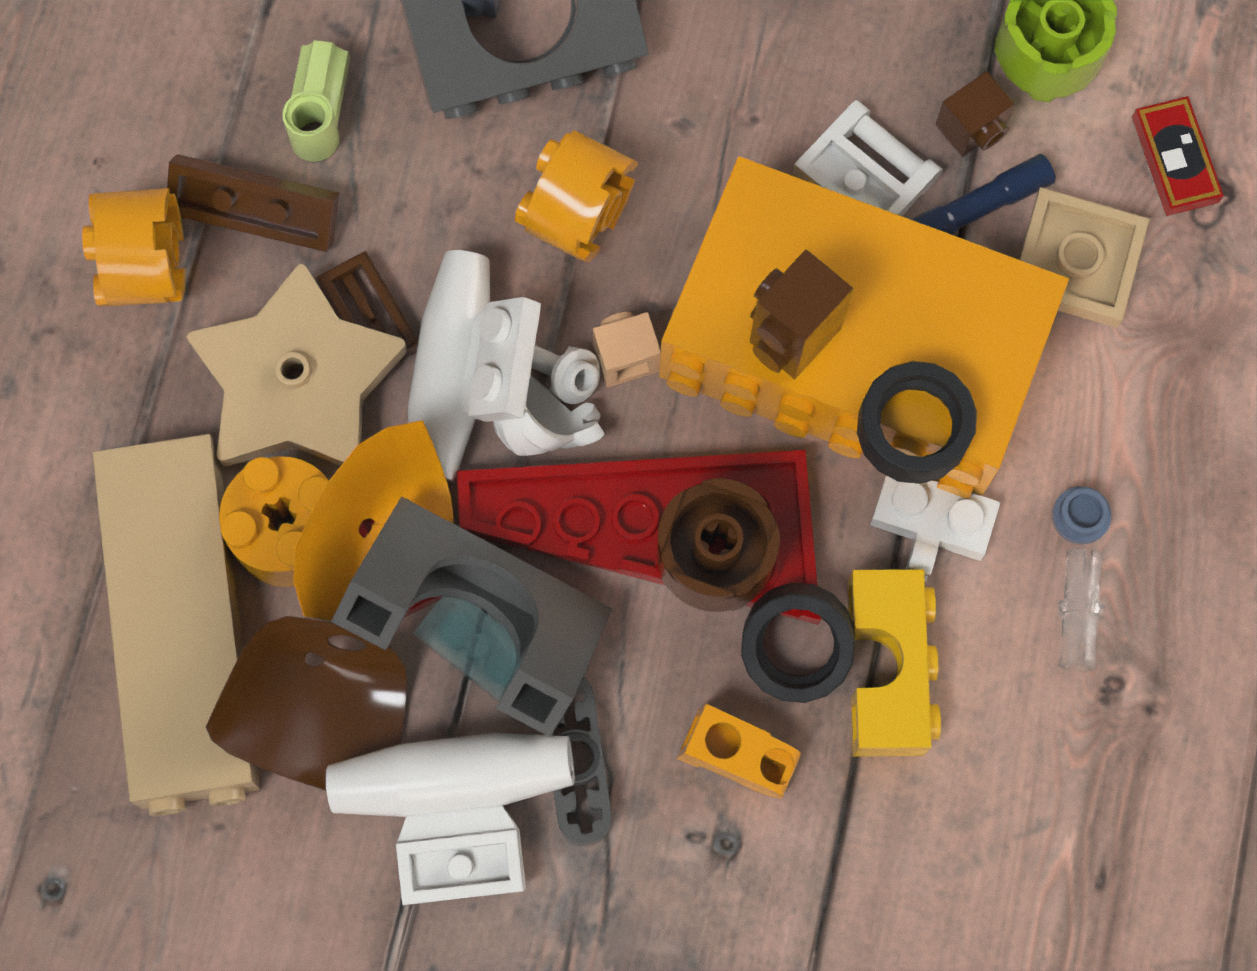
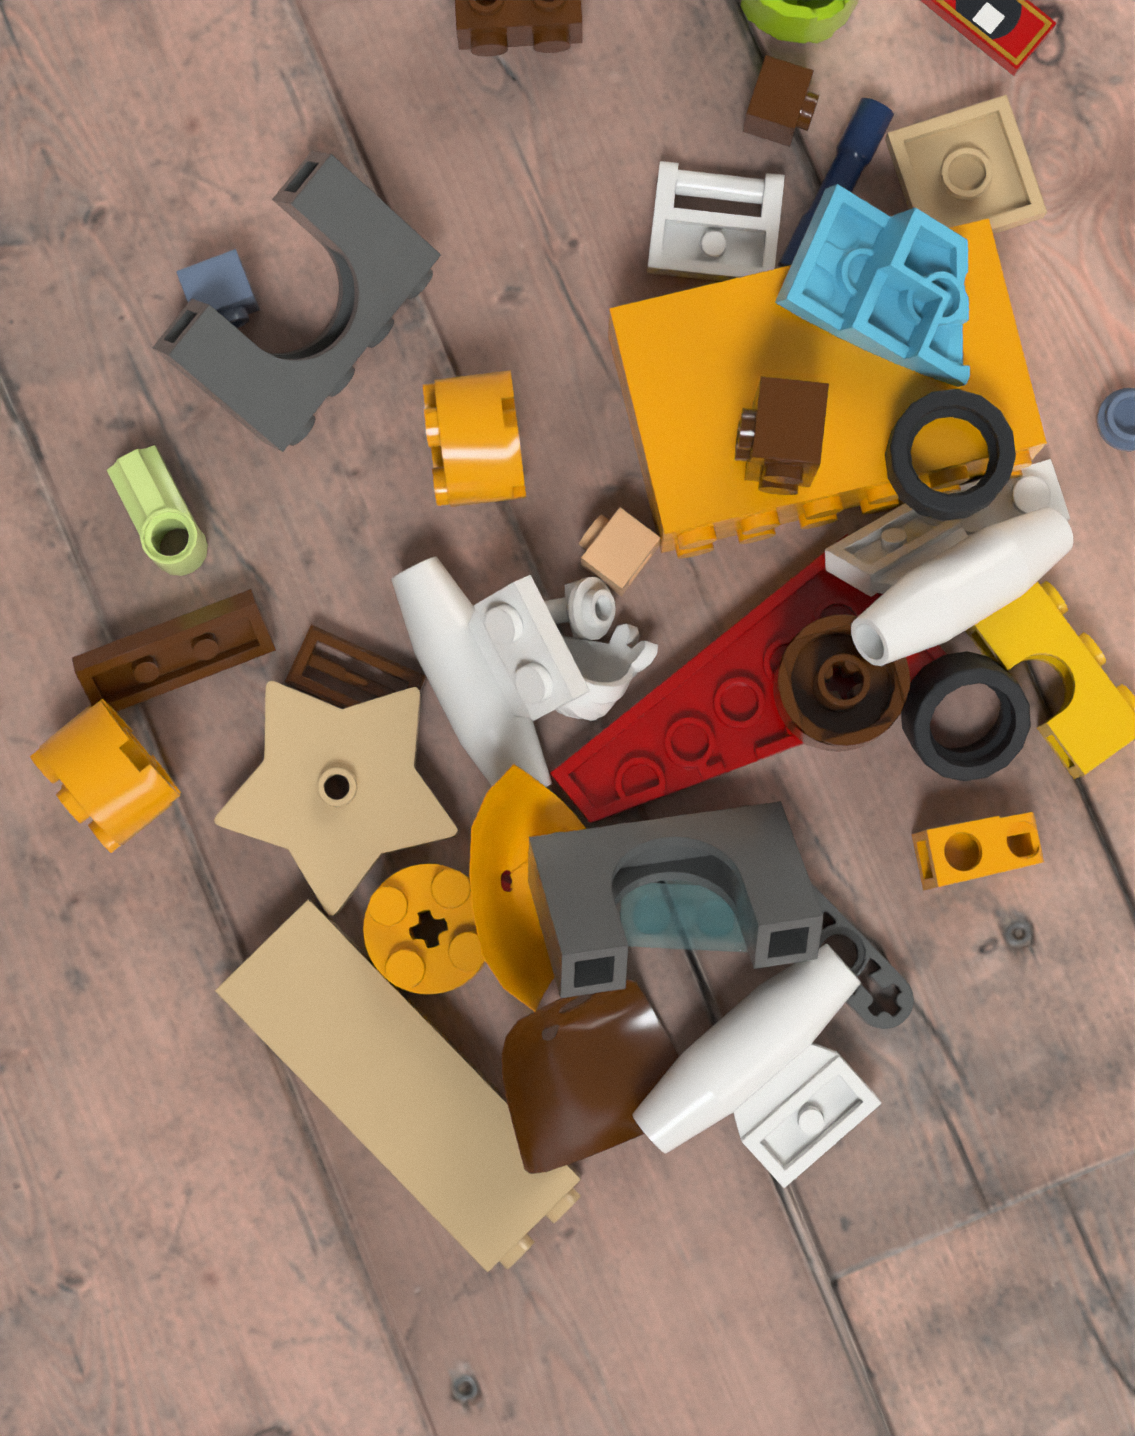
camera: 30 degrees left, 10 degrees up
(847, 515) = (938, 576): none -> white plate
(954, 269) = (884, 284): none -> medium azure slope

